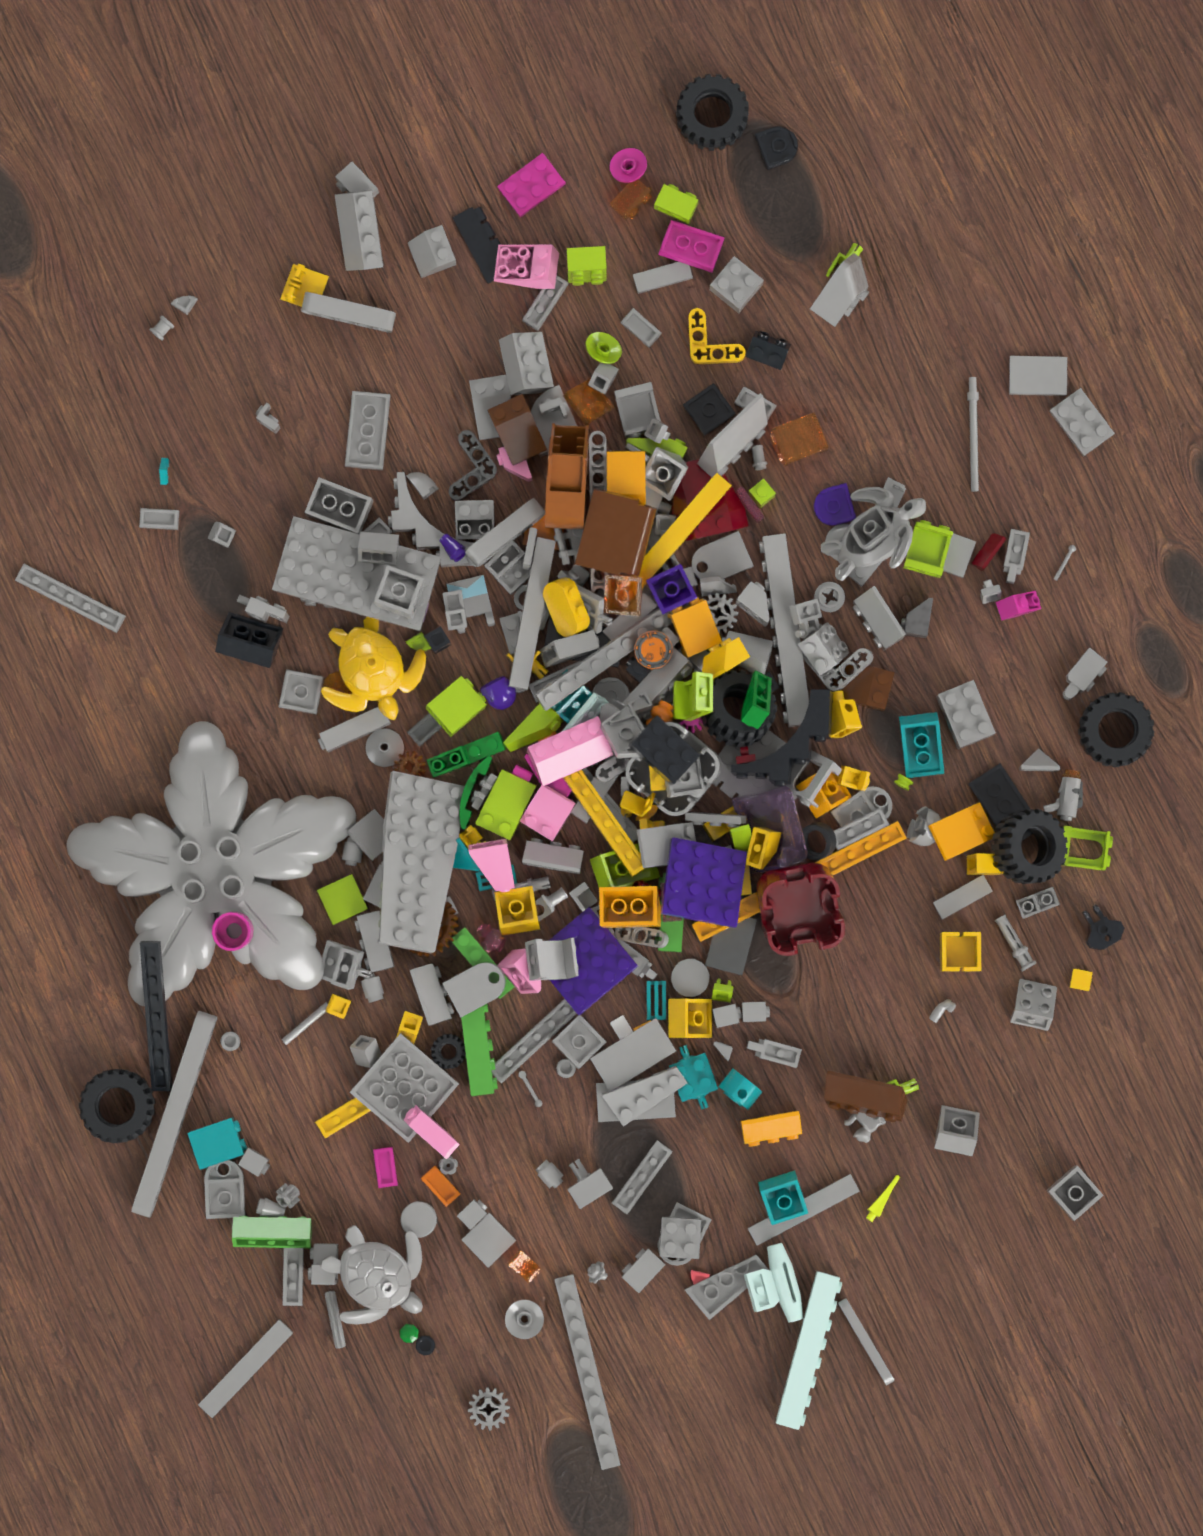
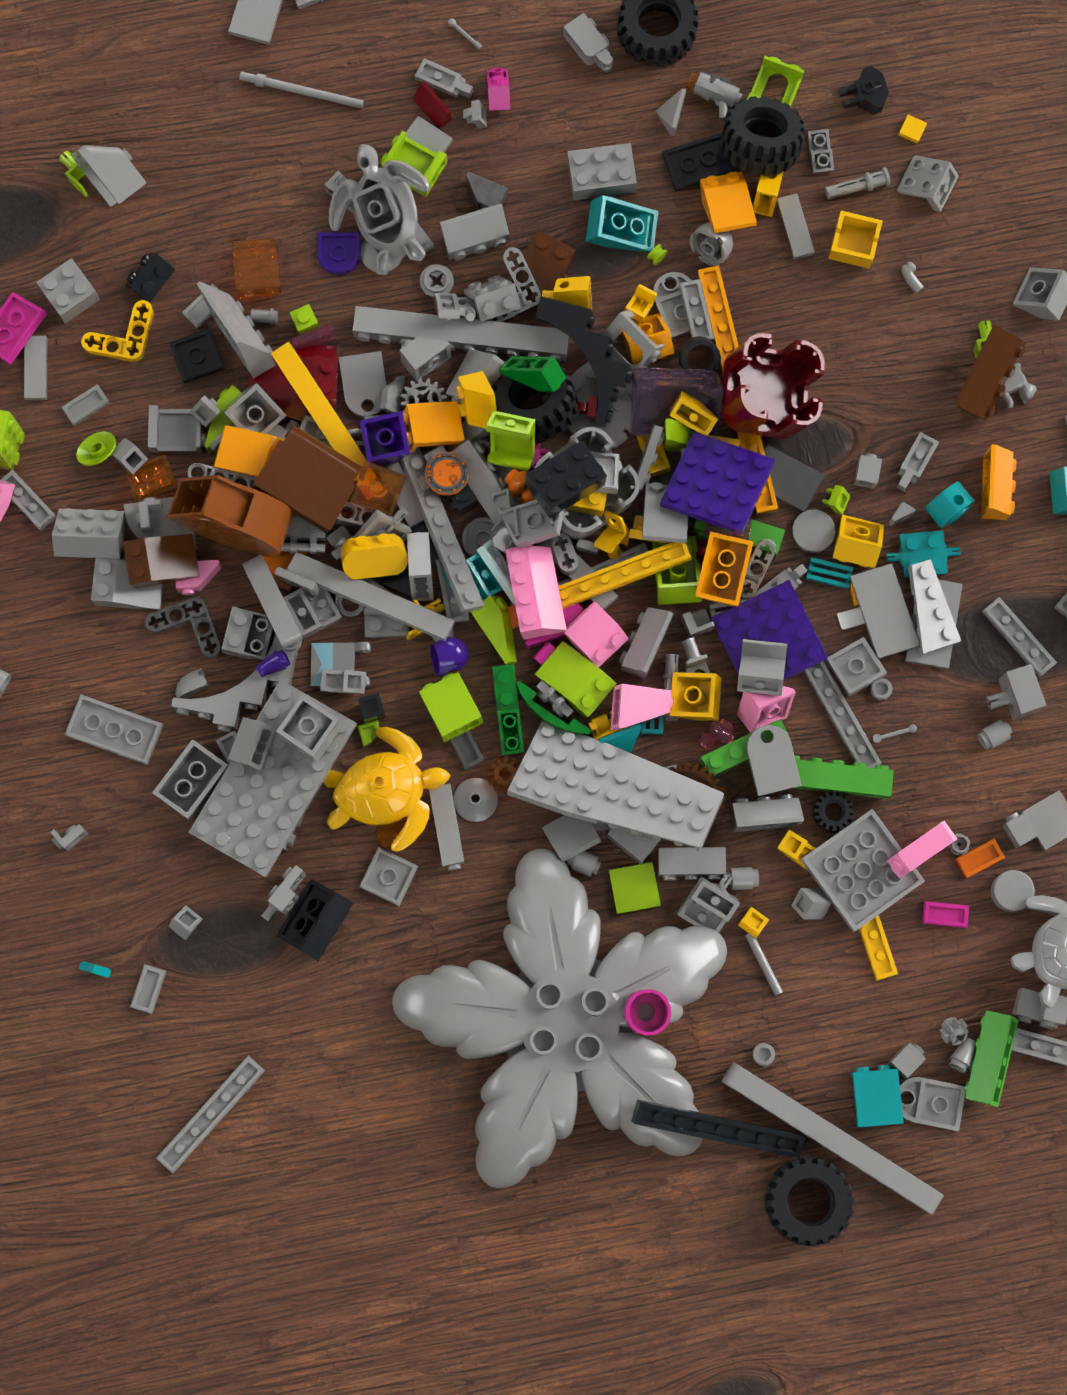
camera: 80 degrees left, 5 degrees down
(726, 1015) = (864, 501): light grey brick -> none

